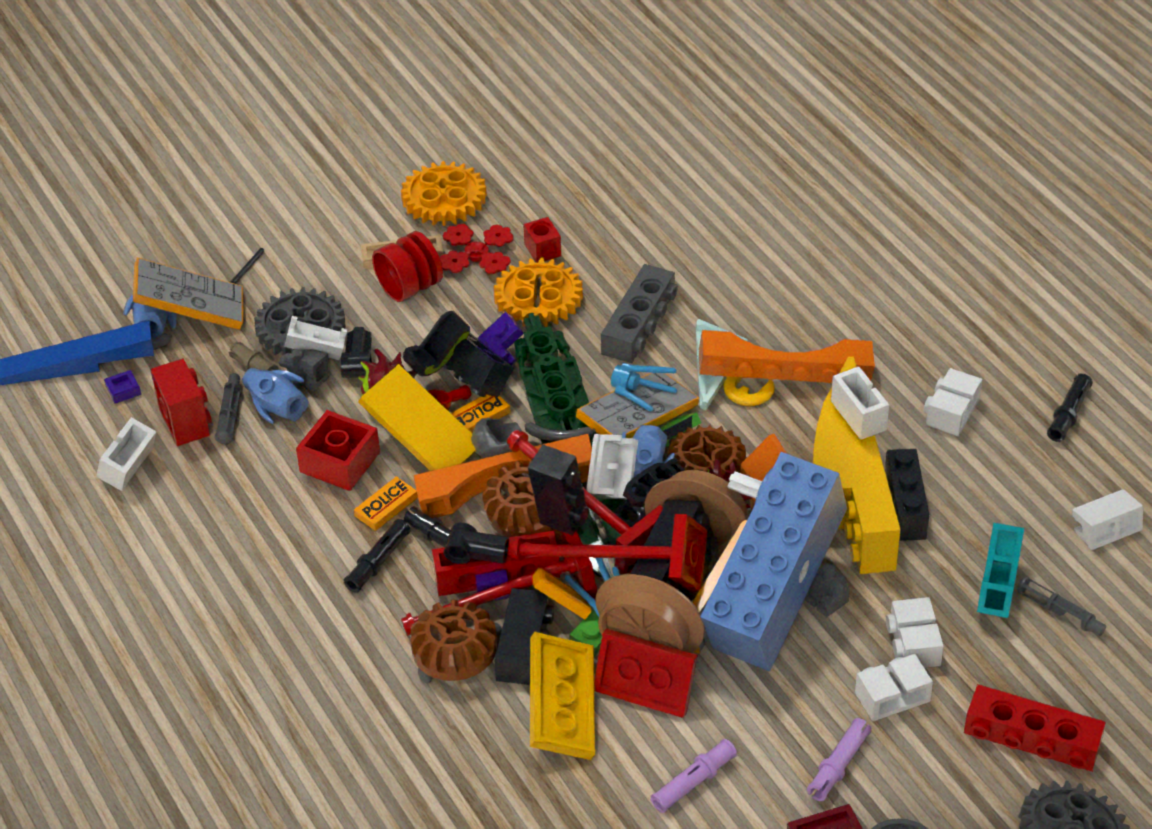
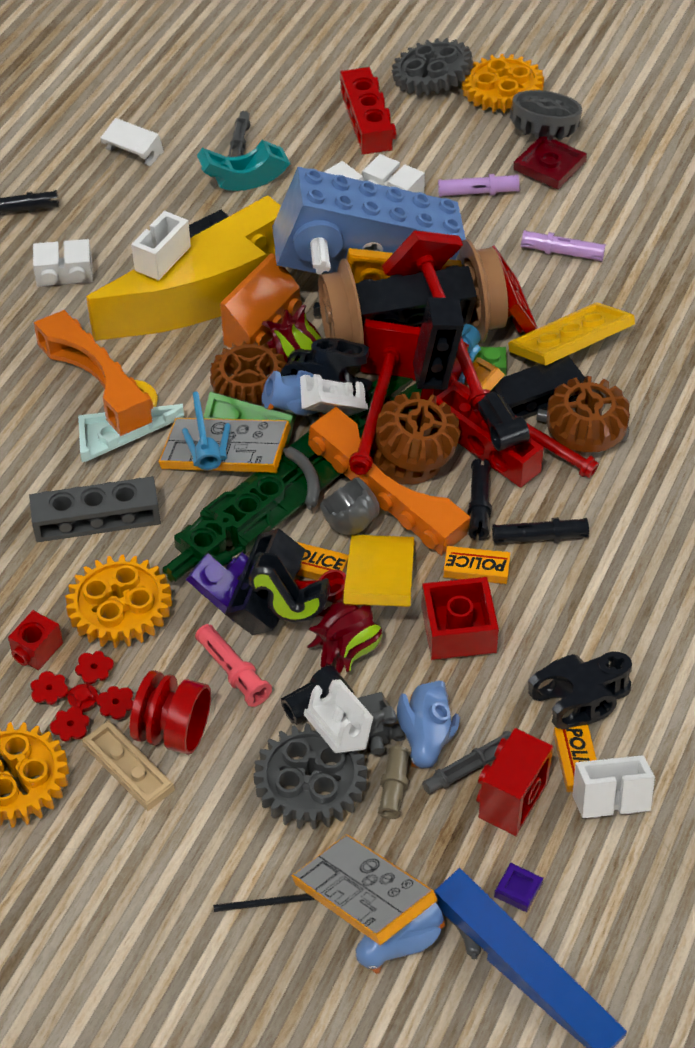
camera: 125 degrees left, 5 degrees up
(175, 466) = (573, 746): none -> light orange tile
(214, 491) = (584, 686): none -> black piece
(411, 326) = (240, 673): none -> coral pin

